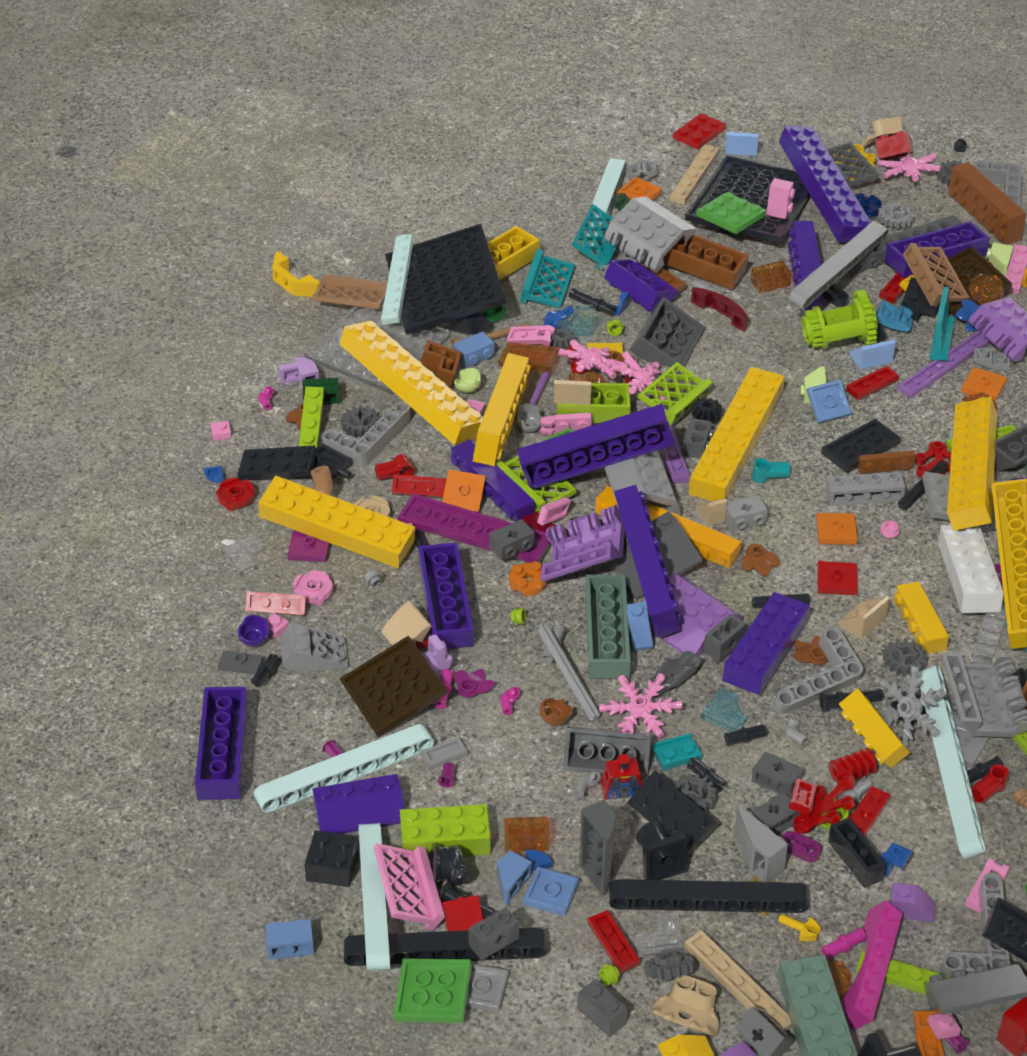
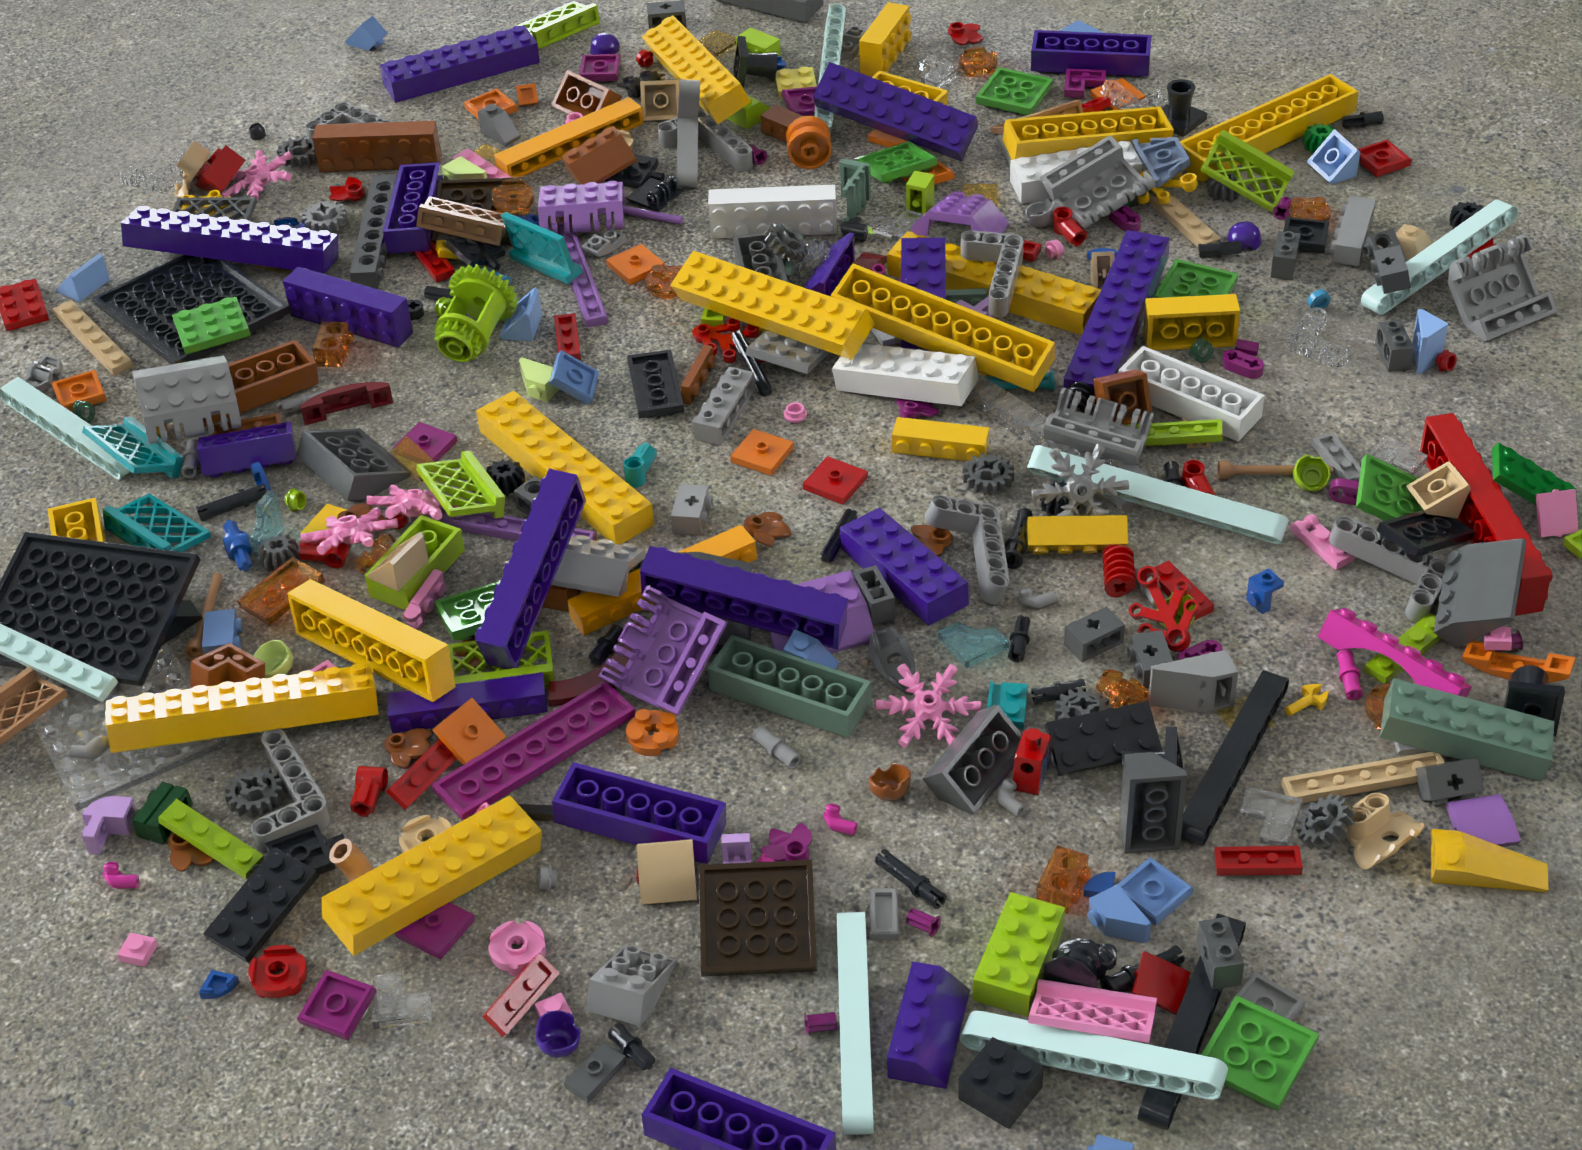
camera: 60 degrees left, 0 degrees up
(225, 528) = (337, 1005): none -> magenta plate
(439, 468) = (407, 746): none -> dark orange plate
(476, 760) = (918, 885): none -> black pin
(511, 540) = (595, 715): dark grey brick -> none
(518, 616) = (710, 762): lime plate -> none
(531, 335) = (249, 573): bright pink plate -> none
(554, 511) = (569, 663): bright pink tile -> none
(569, 672) = (836, 747): light grey axle -> none
(601, 1008) = (1353, 903): dark grey brick -> none
(609, 974) = (1303, 882): lime plate -> none
(693, 359) = (410, 455): none -> clear yellow tile
(713, 362) = (431, 440): none -> magenta plate
(713, 511) = (664, 532): tan slope -> none
(716, 810) = (1121, 690): none -> clear orange plate
(780, 198) = (237, 274): bright pink brick -> none
(802, 796) = (1148, 620): red plate -> none
(837, 265) = (393, 275): light grey beam -> none
(856, 852) = (1241, 613): black brick -> none
(865, 616) = (909, 478): tan slope -> none
(912, 902) = (1318, 604): medium lavender slope -> none
(934, 213) = (351, 190): none -> red plate
(945, 592) = (914, 409): none -> magenta plate

